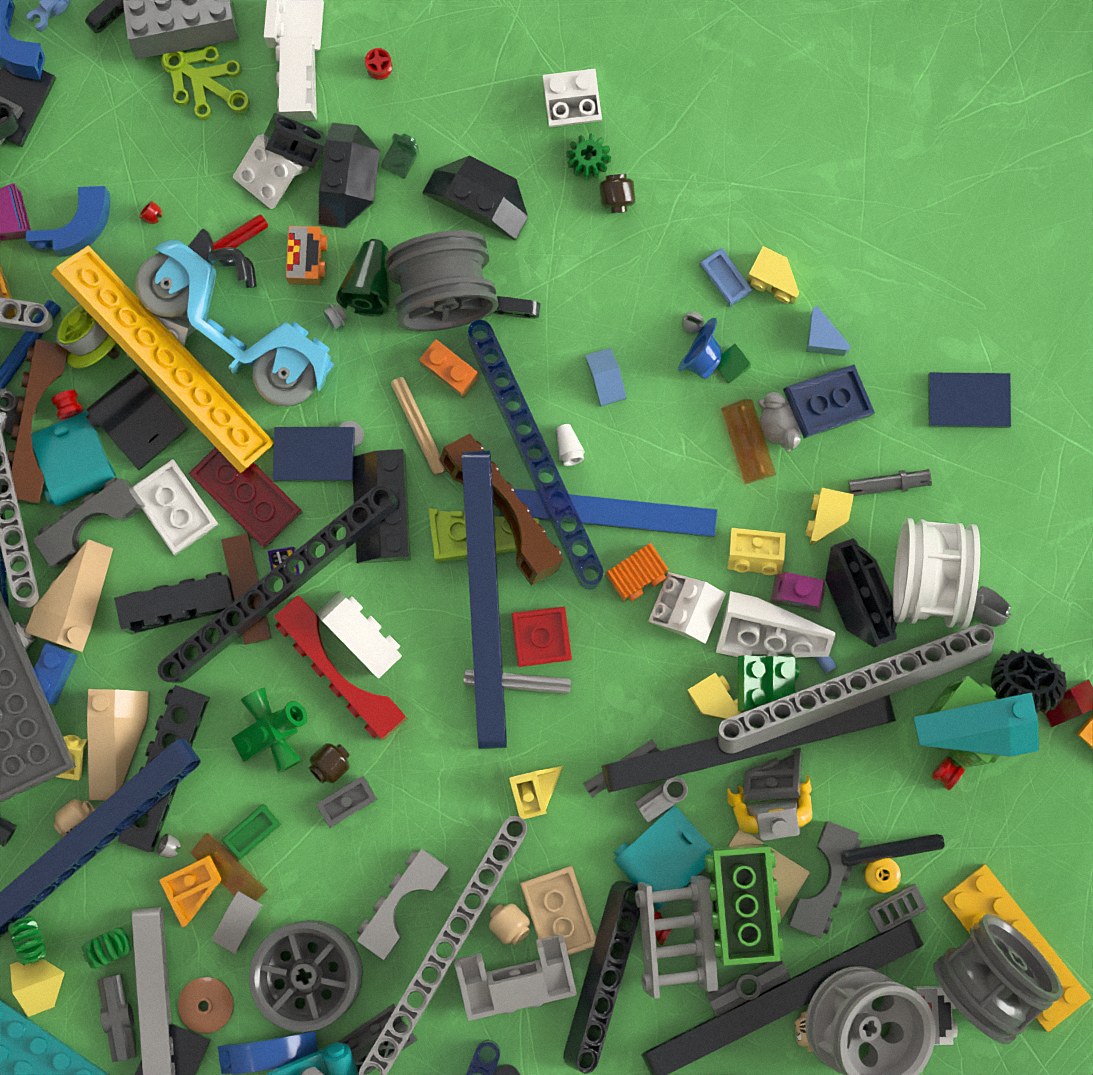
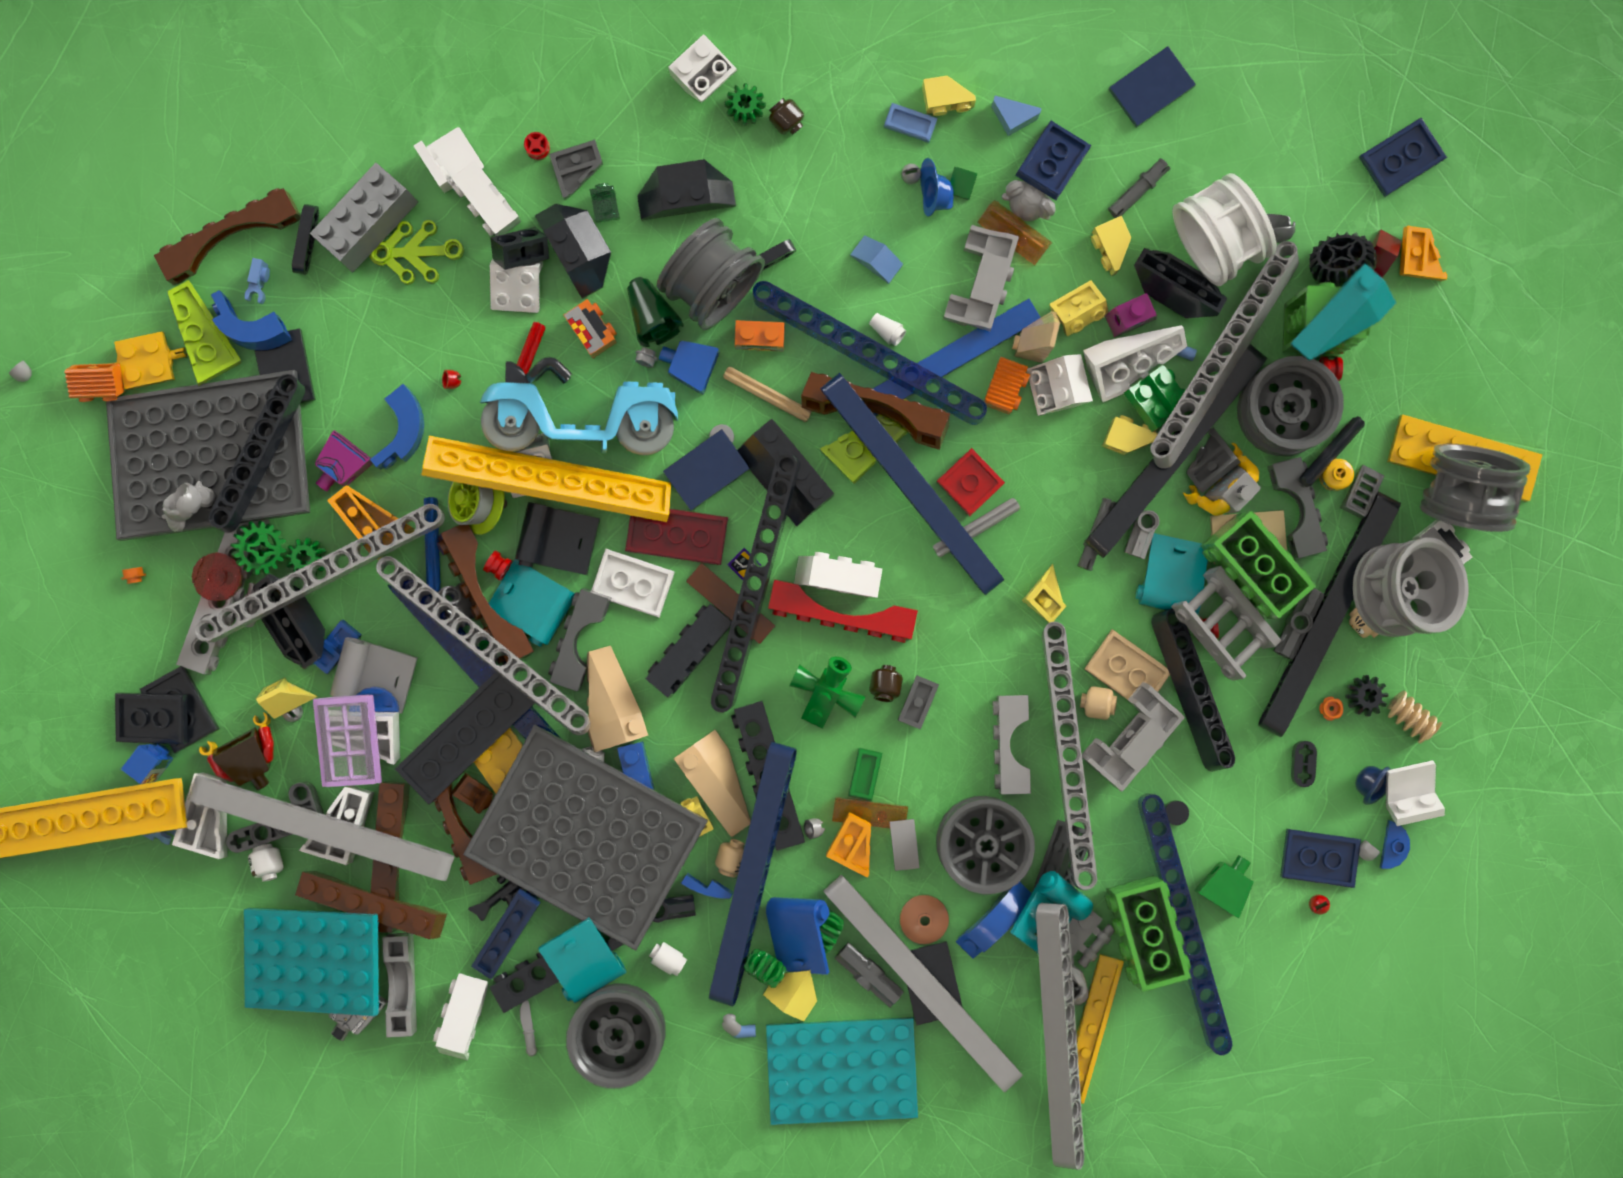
camera: 45 degrees left, 5 degrees up
(39, 835) = (714, 889): none -> blue slope
(77, 929) = (797, 933): none -> blue door
(370, 350) = (691, 363): none -> blue torso
(399, 105) = (575, 166): none -> dark grey wing
(690, 468) = (993, 272): none -> light grey bracket
(694, 549) = (1037, 339): none -> tan wedge
(920, 777) = (1317, 384): none -> dark grey wheel

